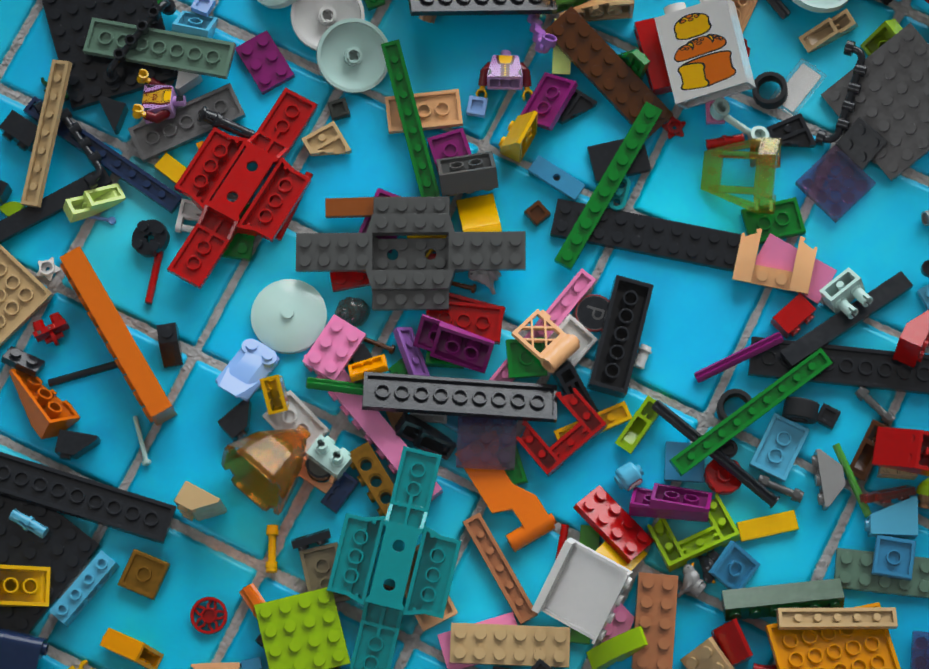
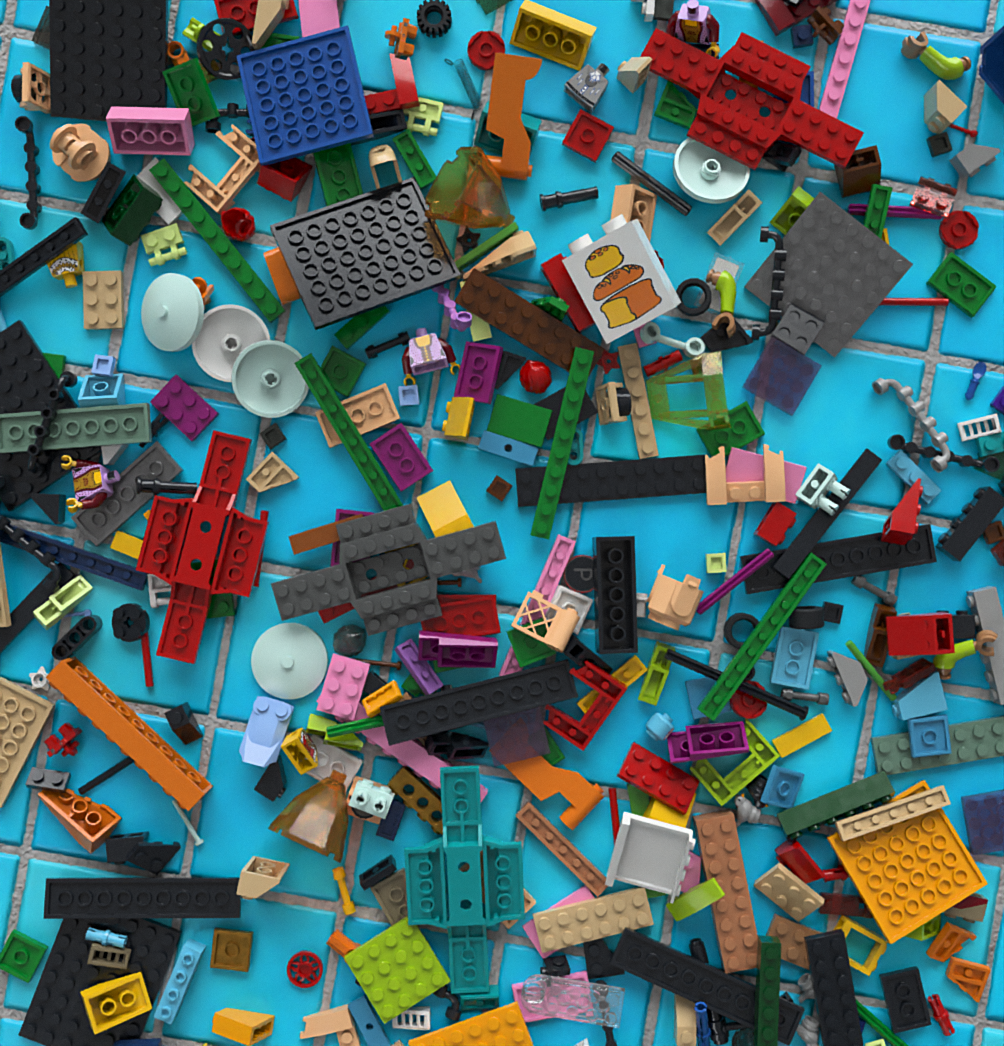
camera: 20 degrees left, 15 degrees up
(35, 539) = (107, 962): none -> dark tan slope
(99, 459) = (153, 855): none -> black wing
(105, 236) = (70, 643): none -> black beam
(235, 69) = (156, 426): none -> black pin
(313, 399) = (317, 726): none -> lime slope
(422, 68) = (342, 370): none -> green plate
(452, 32) = (359, 326): none -> green plate
(455, 59) = (372, 351): none -> black bar
(467, 173) = (419, 471): dark grey slope -> none
(575, 155) = (519, 420): none -> green tile
(601, 121) = (535, 376): none -> red hair
(667, 162) = (617, 403): none -> tan piece
(675, 353) = (674, 601): none -> light nougat piece
(692, 170) = (640, 408): none -> tan plate
(726, 337) = (715, 563): none -> yellowish green plate
(803, 89) = (726, 287): none -> piece

